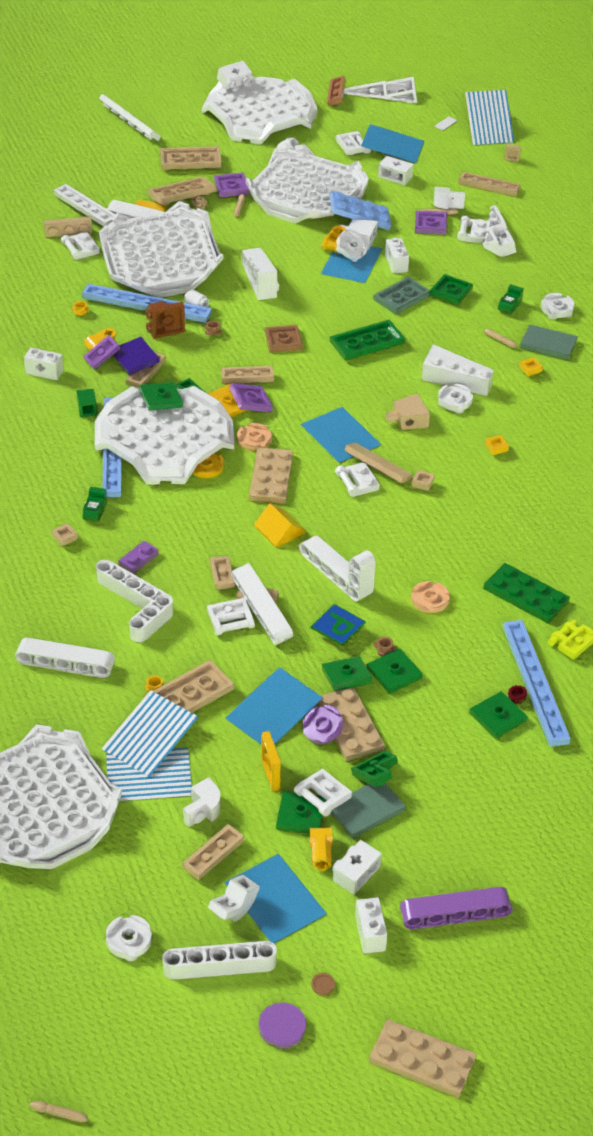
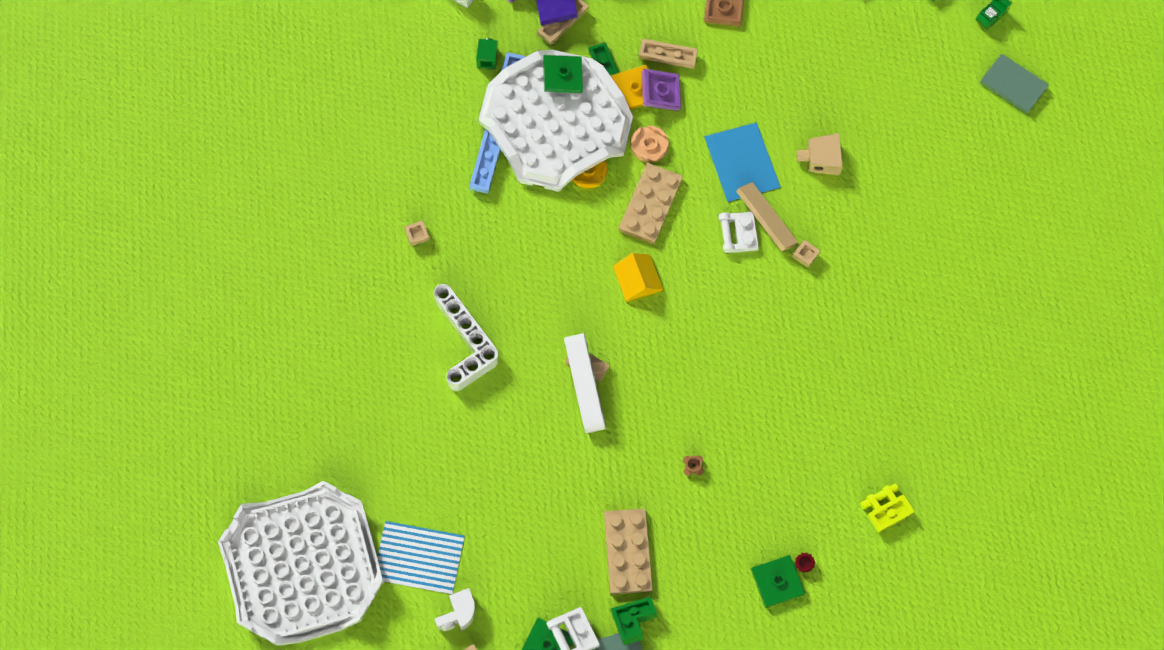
camera: 15 degrees right, 25 degrees up
(65, 657) = (375, 396): white beam -> none
(95, 504) = (457, 201): green leg -> none
(138, 557) = (483, 281): medium lavender plate -> none
(150, 733) = (431, 512): sticker -> none
(153, 683) = (453, 448): yellow plate -> none
(197, 687) = (482, 472): tan plate -> none
(221, 572) = (559, 325): tan plate -> none
(230, 611) = (551, 379): white plate -> none
(270, 761) = (535, 585): yellow plate -> none
(274, 706) = (559, 513): dark azure sticker -> none
(323, 724) = (599, 549): medium lavender tile -> none
(338, 624) = (654, 427): blue piece -> none
(346, 673) = (643, 491): green plate -> none
(352, 577) = (690, 376): white beam -> none
(367, 340) = (813, 33): green plate -> none
(394, 671) = (693, 498): green plate -> none
(430, 597) = (761, 411): light nougat tile -> none
(447, 398) = (881, 153): white plate -> none
(449, 368) = (893, 107): white wedge -> none
(496, 445) = (901, 223): yellow plate -> none
(510, 343) = (962, 65): tan piece -> none
(526, 593) = (861, 433): green plate -> none
(530, 366) = (979, 118): yellow plate -> none
(536, 683) = (828, 553): light blue plate -> none
(557, 306) = (1039, 40): white plate -> none

